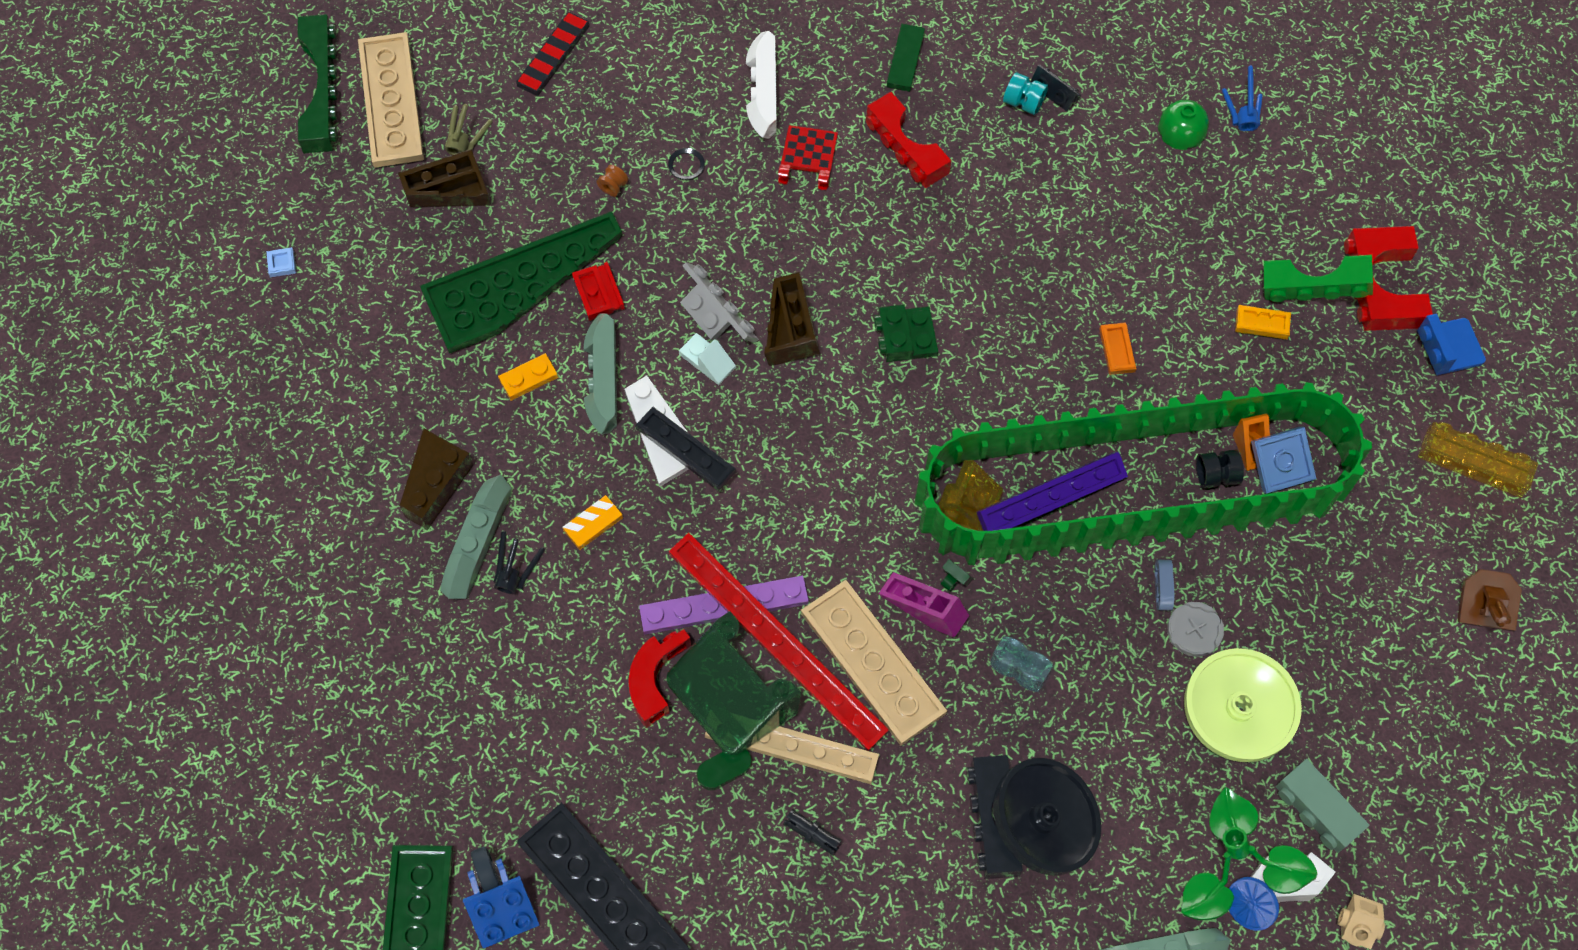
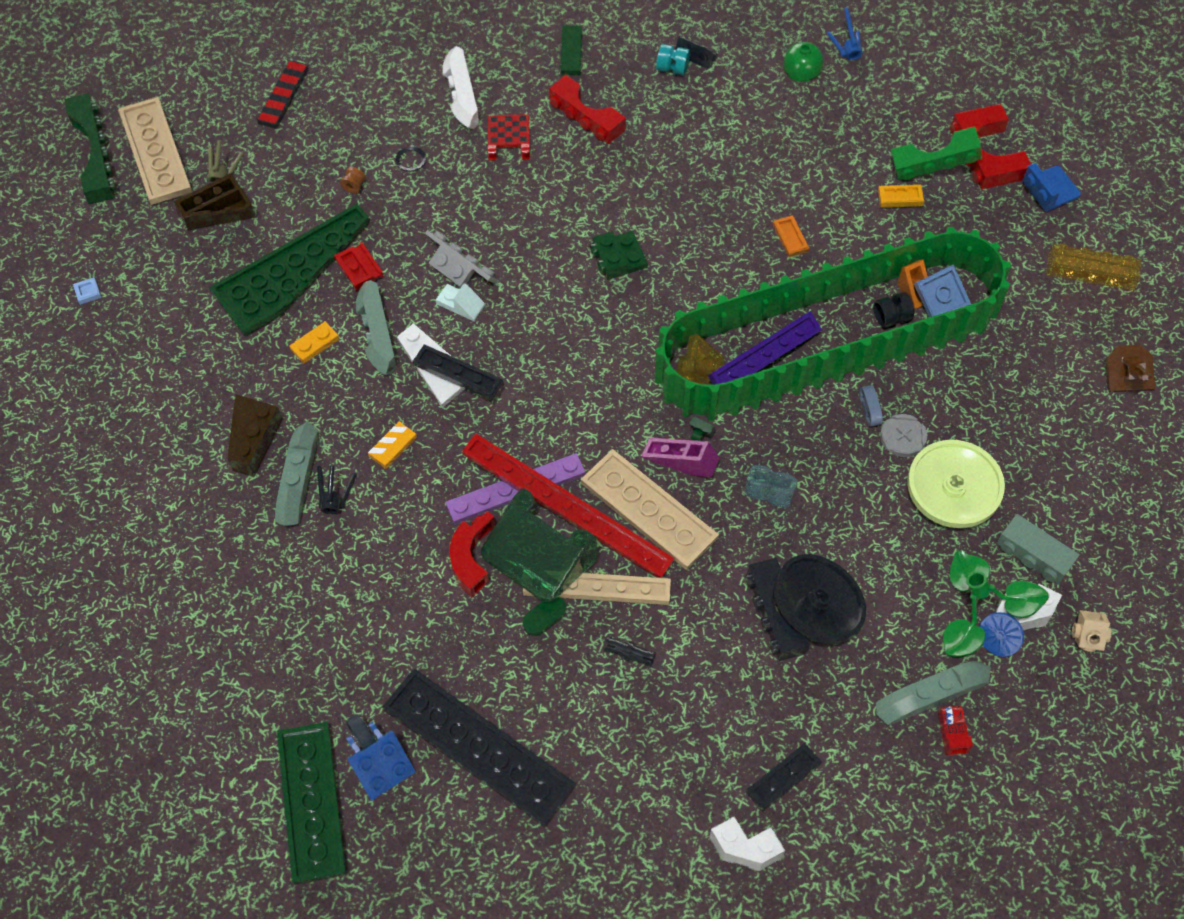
camera: 10 degrees left, 5 degrees down
(790, 325) = (523, 261): dark brown wedge -> none

